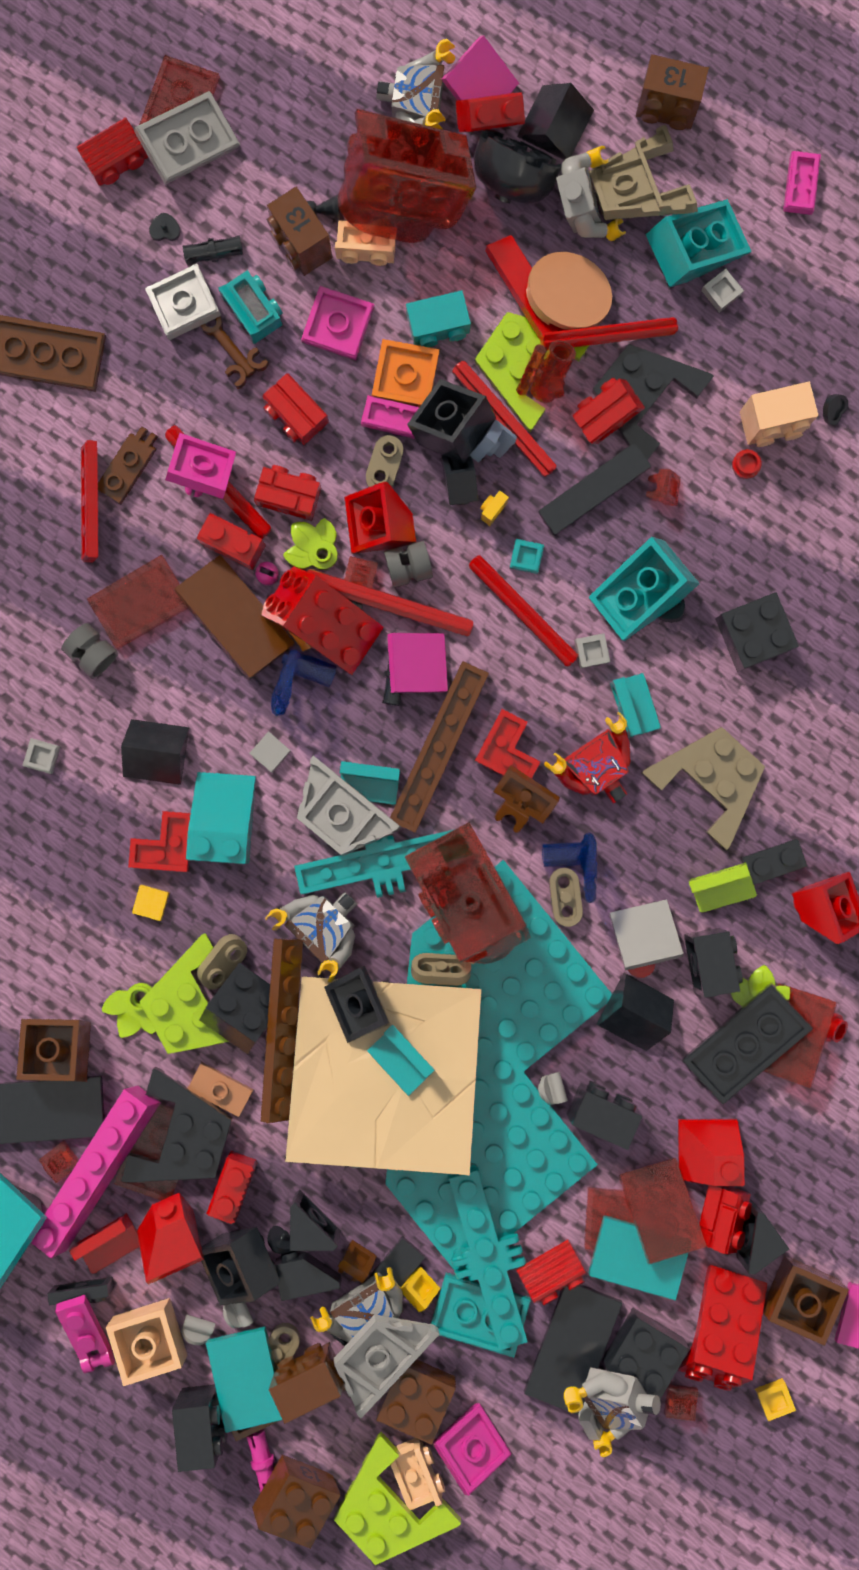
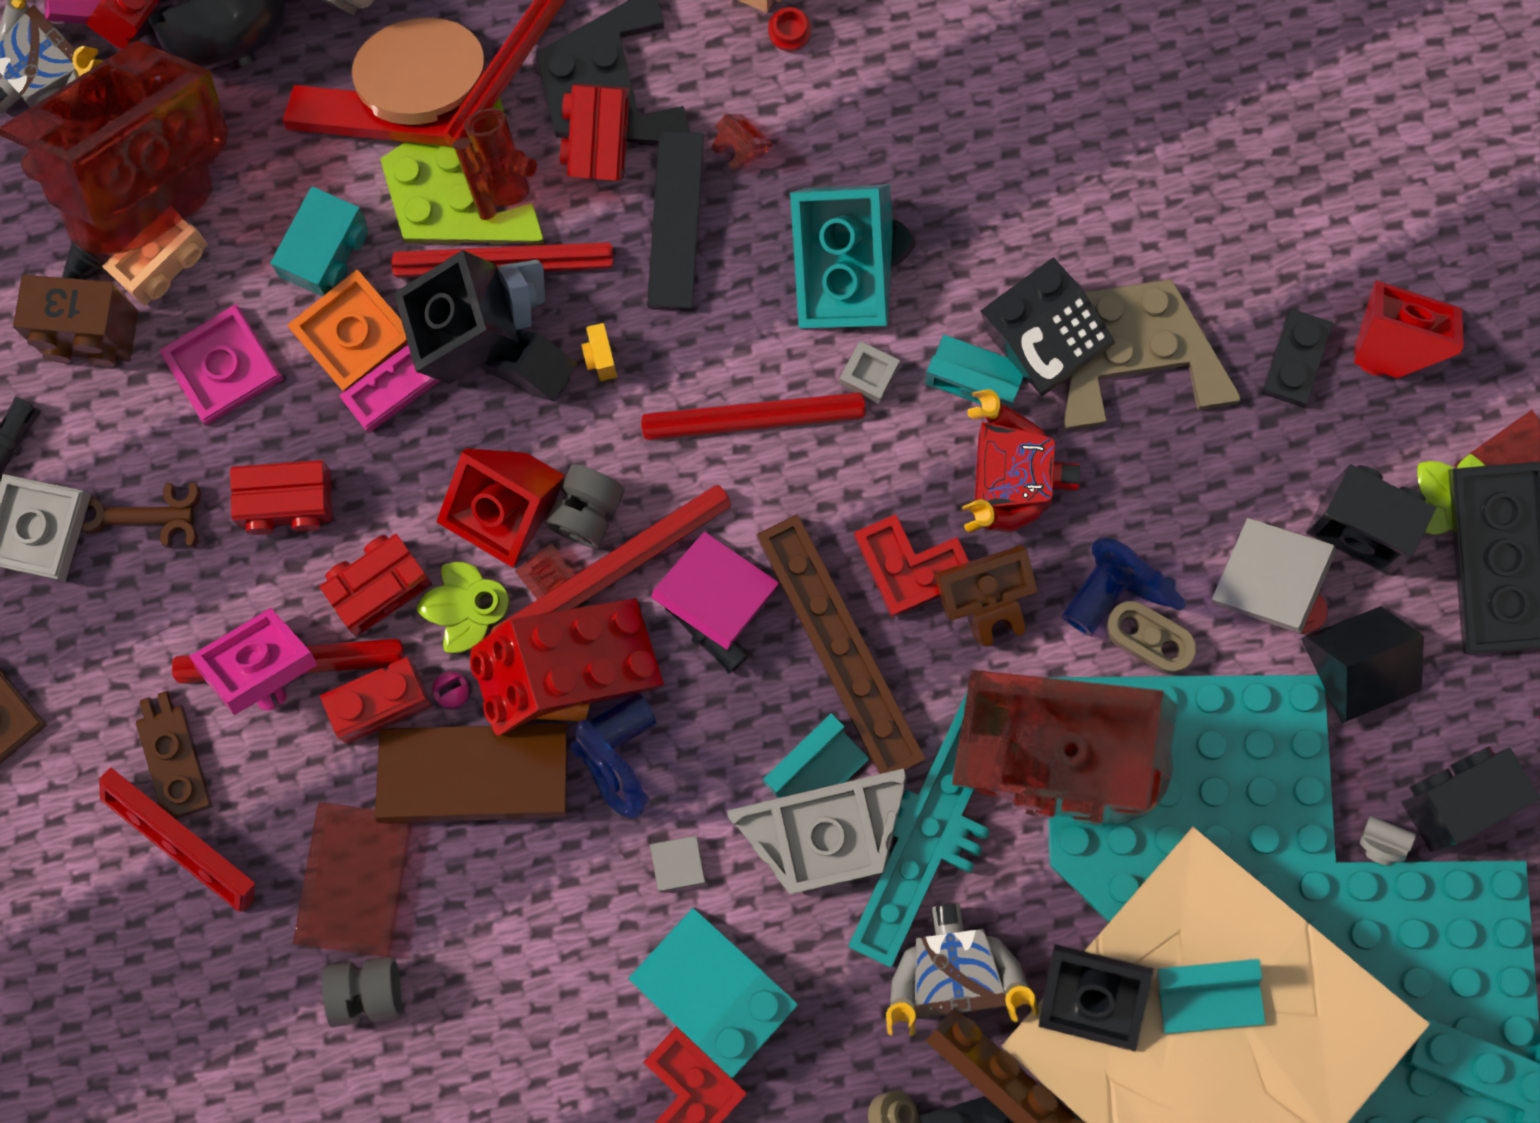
camera: 50 degrees left, 10 degrees down
(154, 751) = (558, 1013): black slope -> none
(251, 305) = (112, 447): teal window -> none
(383, 462) = (435, 440): dark tan plate -> none
(440, 969) = (1127, 859): dark tan plate -> none
(526, 556) = (690, 361): teal tile -> none
(686, 723) = (1046, 326): none -> black slope
(723, 887) = (1284, 439): lime panel -> none
(756, 632) = (1000, 165): black brick -> none

